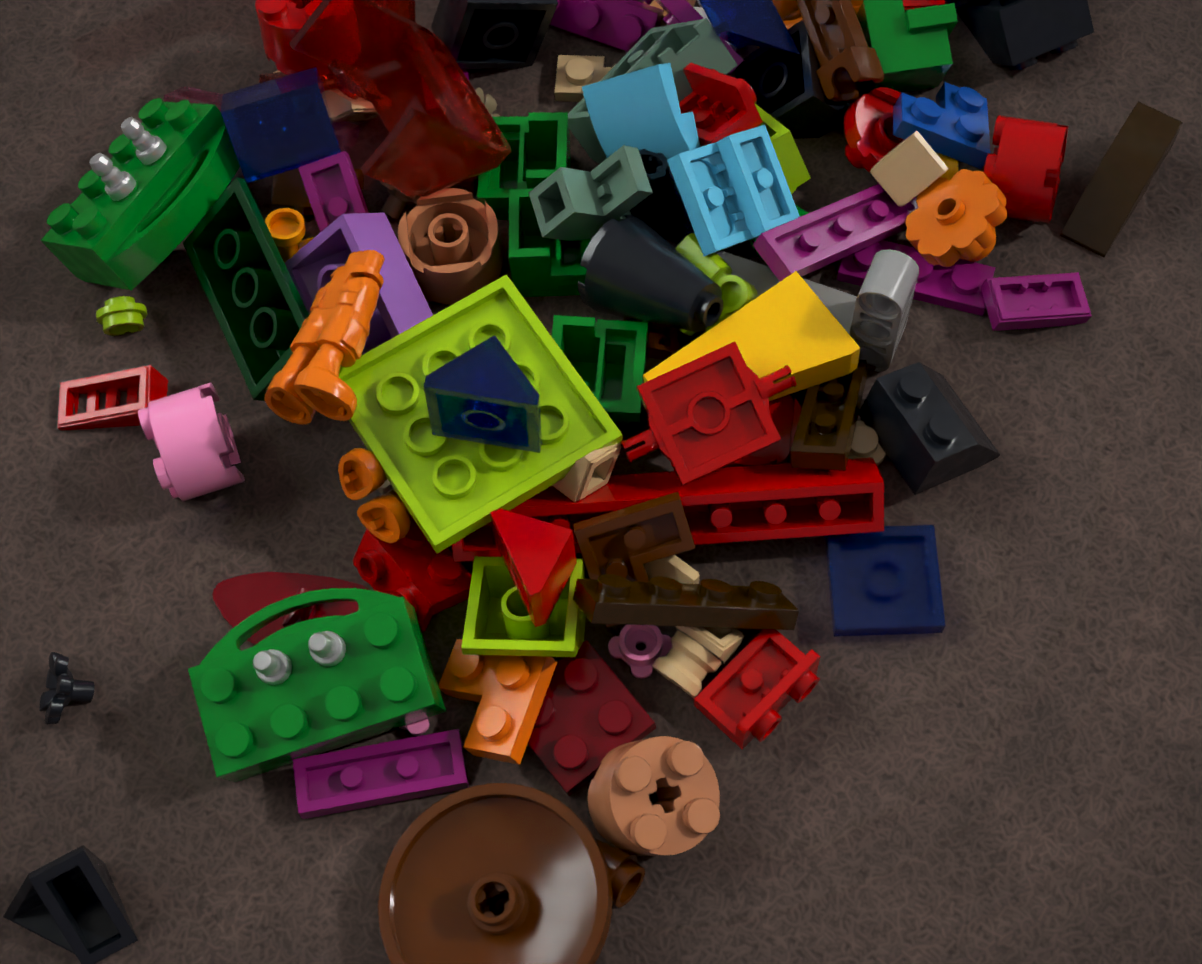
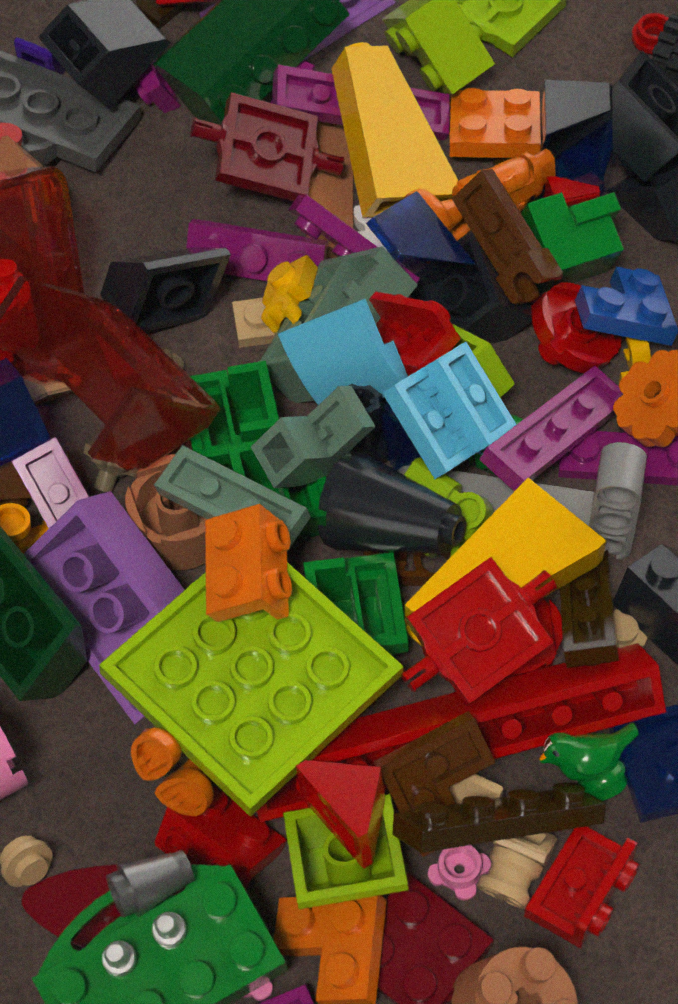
camera: 15 degrees left, 5 degrees down
(223, 554) = (25, 861): none -> tan plate
(319, 598) = (148, 881): none -> flat silver cone
(329, 339) = (97, 629): orange piece -> none
(484, 400) = (275, 657): slope -> none
(488, 298) = (246, 564): none -> orange bracket
(497, 241) = (217, 490): none -> sand green plate
(589, 473) = (376, 710): tan slope -> none
(611, 46) = (285, 289): none -> yellow plate
(796, 564) = (591, 759): none -> green animal
(908, 169) = (606, 358): tan slope -> none

